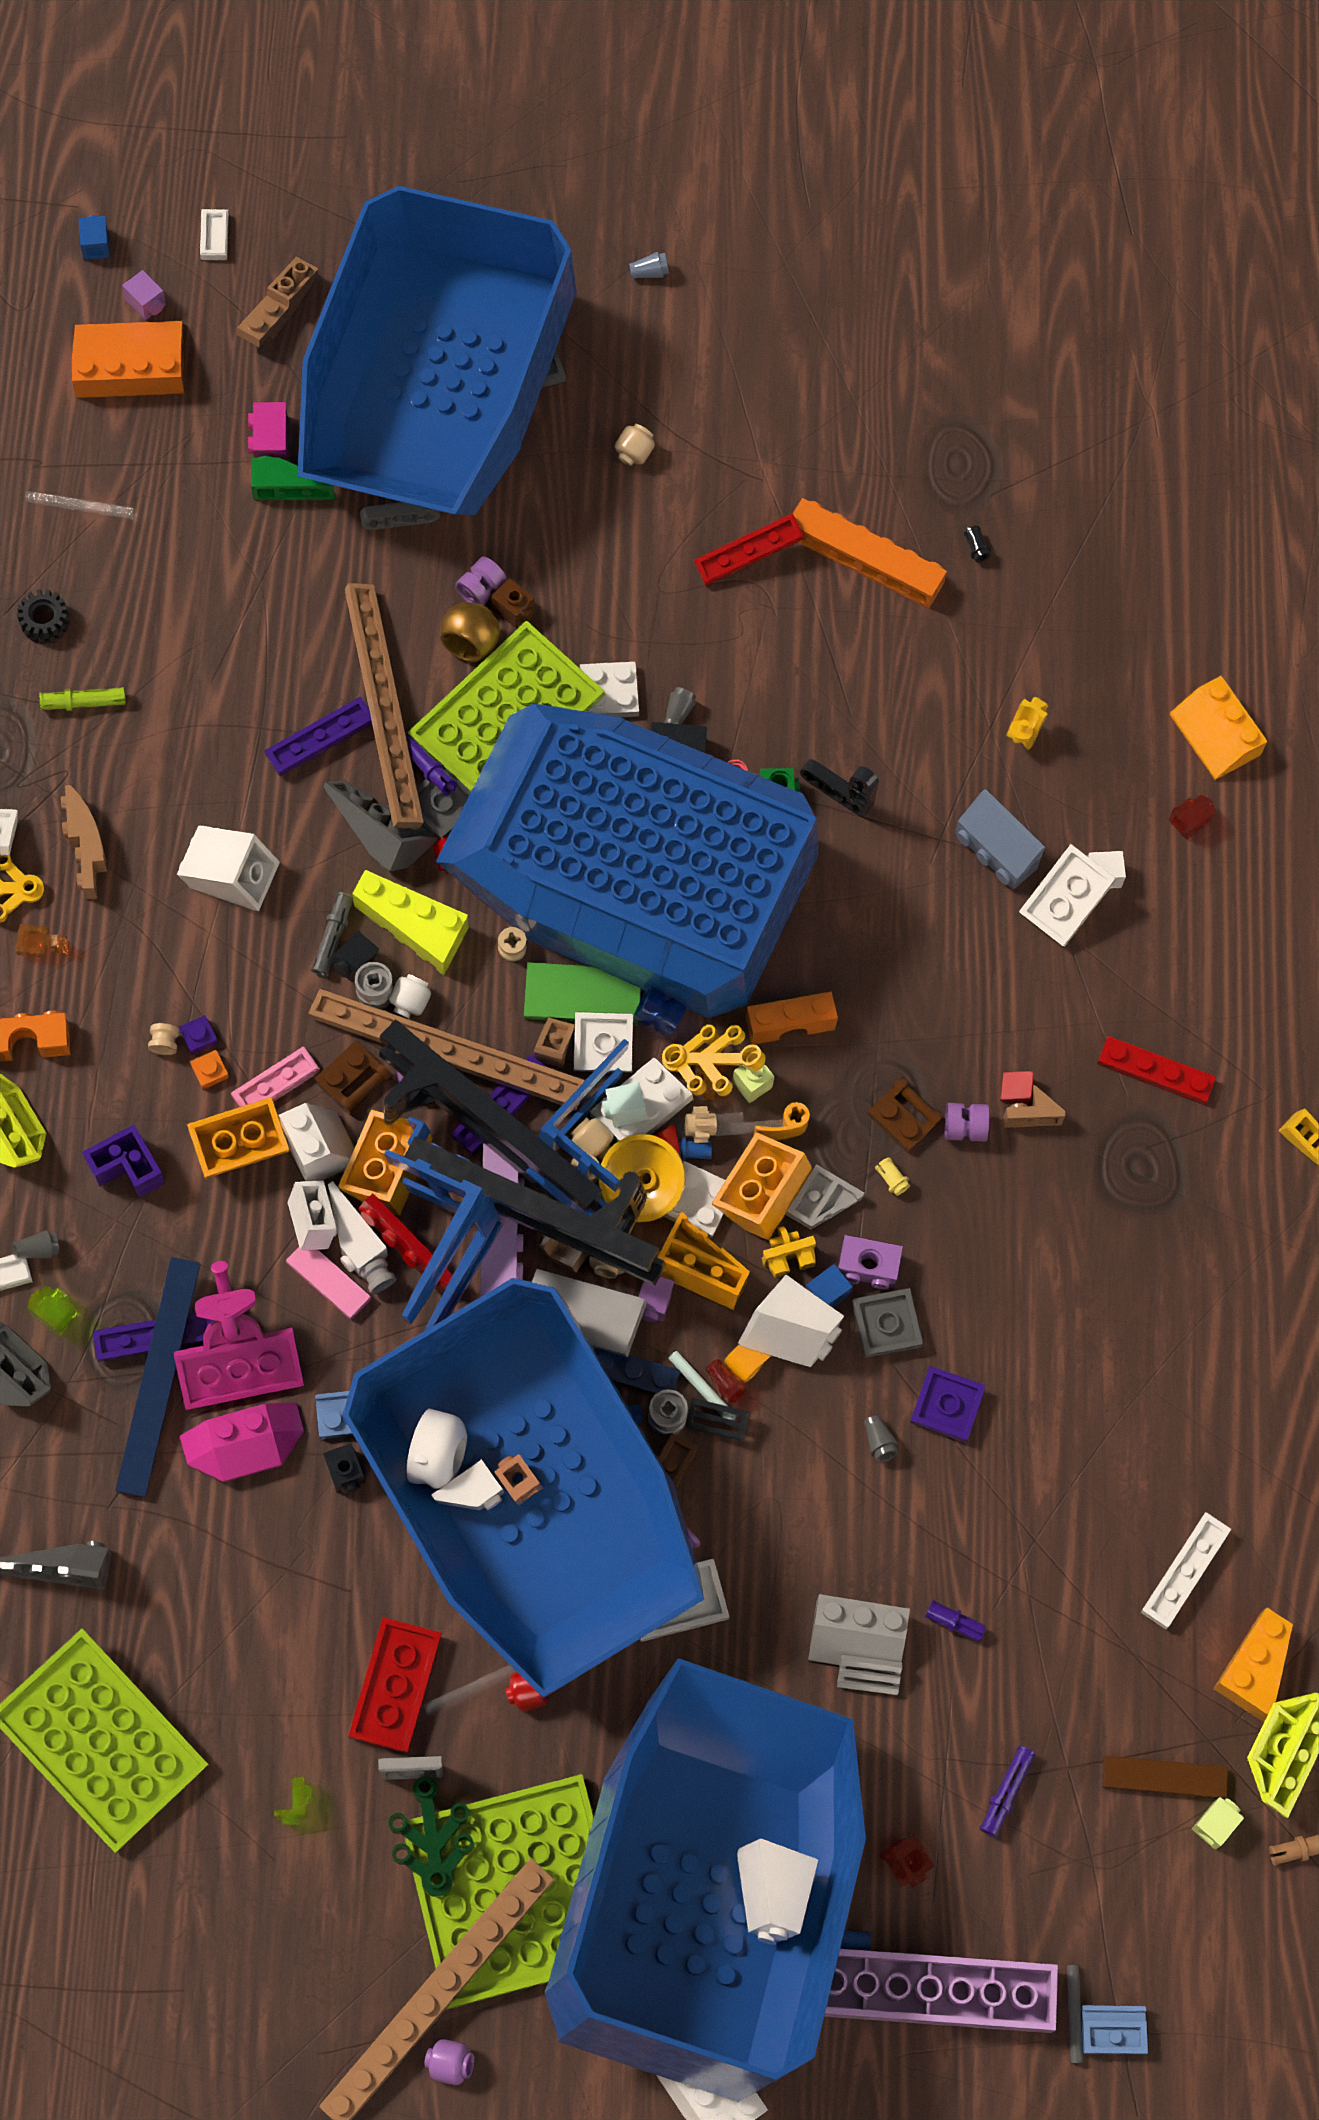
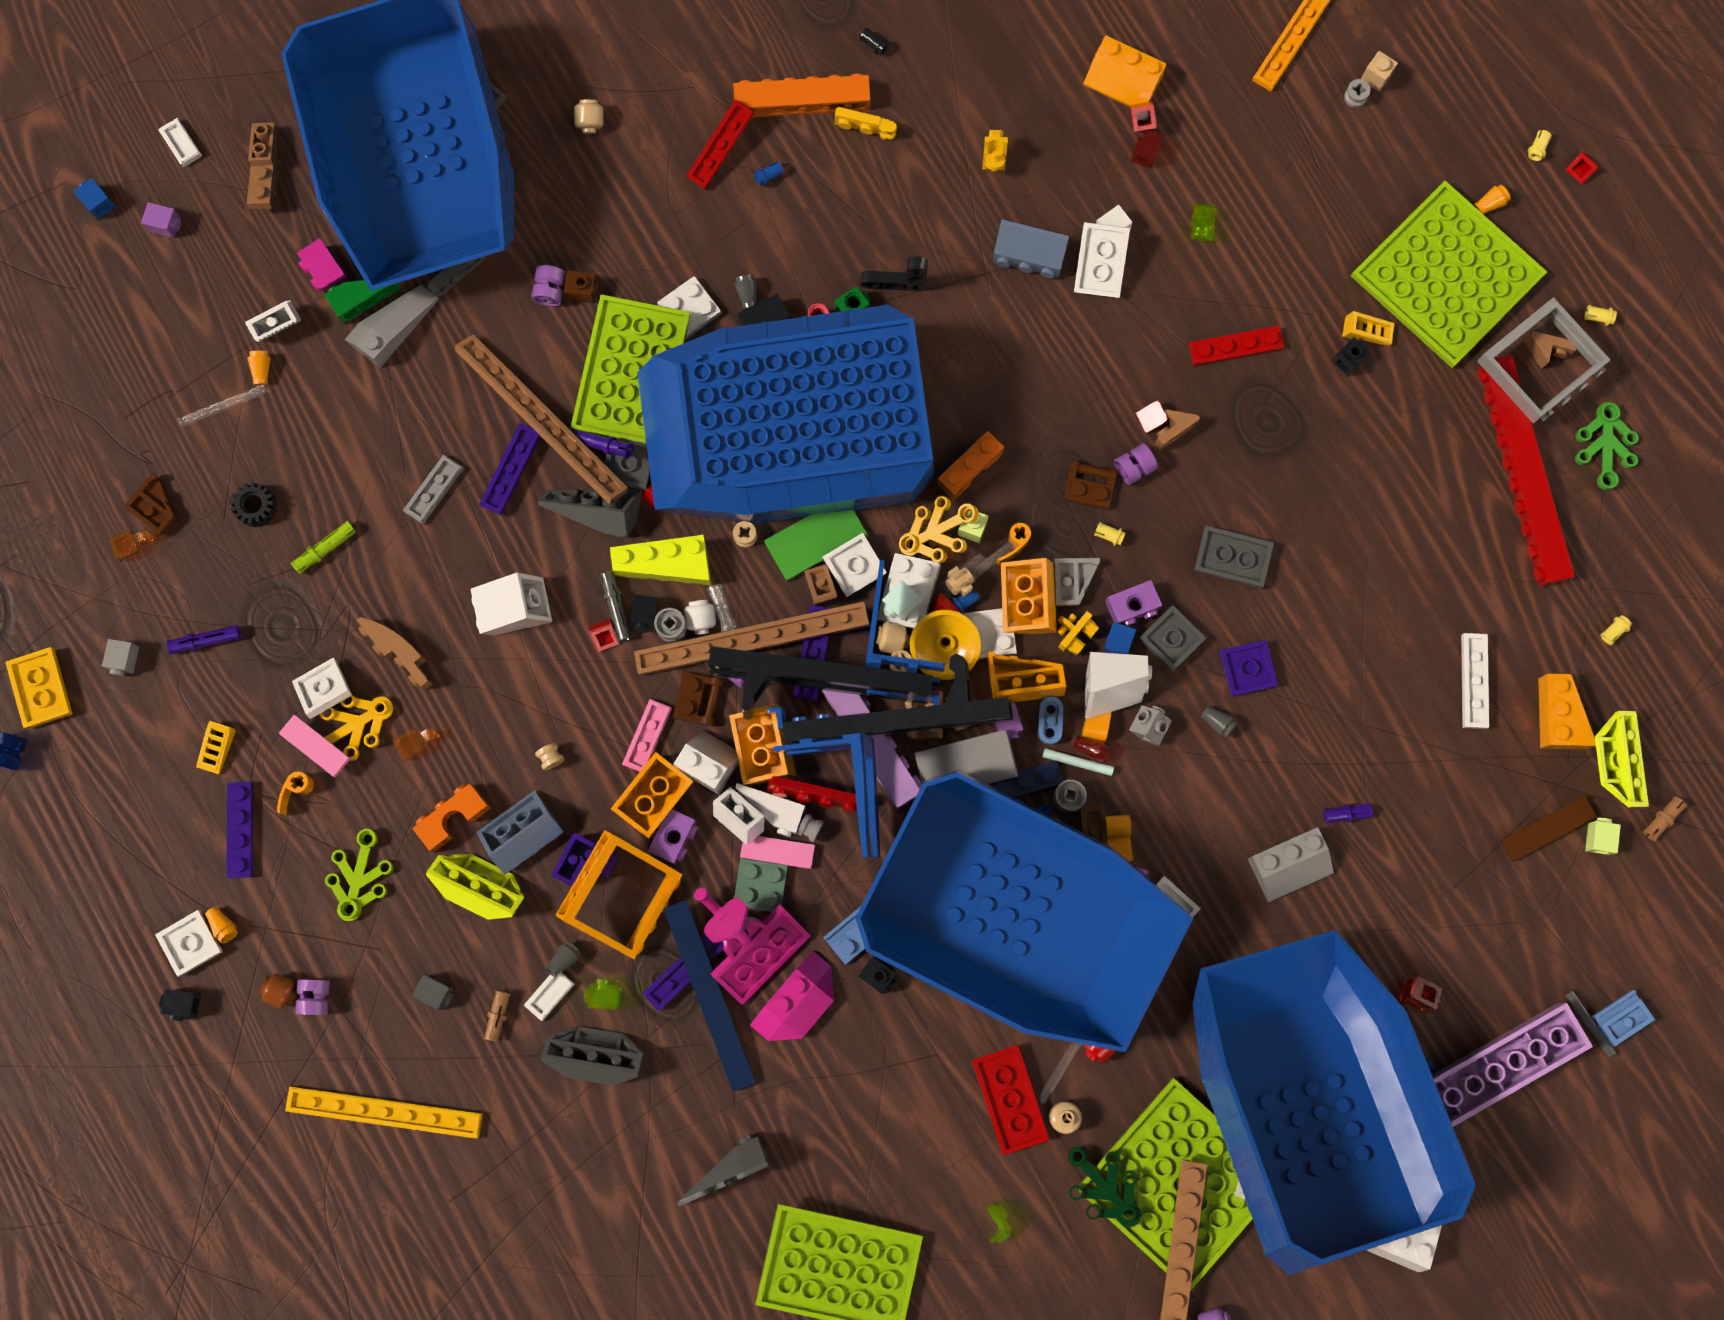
camera: 25 degrees left, 10 degrees up
(81, 1095) = (519, 832): none -> sand blue slope
(115, 1174) = (587, 879): none -> light orange window
(128, 359) = (182, 275): orange slope -> none
(142, 488) = (259, 365): none -> light orange cone
(185, 453) = (273, 321): none -> white brick
(198, 1035) = (570, 737): dark purple plate -> none
(209, 1069) = (595, 756): orange plate -> none
(229, 710) = (433, 489): none -> light grey tile
(238, 1181) = (662, 847): none -> medium lavender brick
(288, 1301) = (761, 884): none -> sand green plate
(294, 529) = (387, 328): none -> light grey wedge
(300, 955) = (603, 635): none -> red slope
(410, 1768) = (1061, 1150): light grey tile -> none
(436, 1449) = (937, 926): white piece -> none
(439, 1000) = (721, 607): none -> clear pin
(445, 1748) = (1059, 1110): none -> tan head
(469, 631) = (565, 327): pearl gold wheel -> none
(471, 1489) = (977, 937): white slope -> none
(508, 1469) = (1010, 916): nougat brick -> none
(660, 1012) = (876, 519): clear blue wheel -> none
(695, 1488) = (1119, 834): none -> light orange panel
(700, 1326) = (1050, 721): none -> medium blue plate
(743, 1425) = (1104, 768): black tile -> none
(775, 1889) = (1361, 1079): white slope -> none
(779, 607) = (768, 173): none -> blue pin
(803, 1394) = (1150, 724): none -> light grey brick
(891, 1687) = (1316, 890): light grey tile -> none
(913, 617) = (865, 123): none -> yellow hinge
(992, 1824) = (1455, 906): dark purple pin -> none
(1008, 1281) = (1233, 557): none -> dark grey plate
(1203, 924) = (1203, 222): none -> clear neon green bracket
(1208, 779) = (1143, 116): none -> brick
(1267, 1160) = (1346, 360): none -> black brick

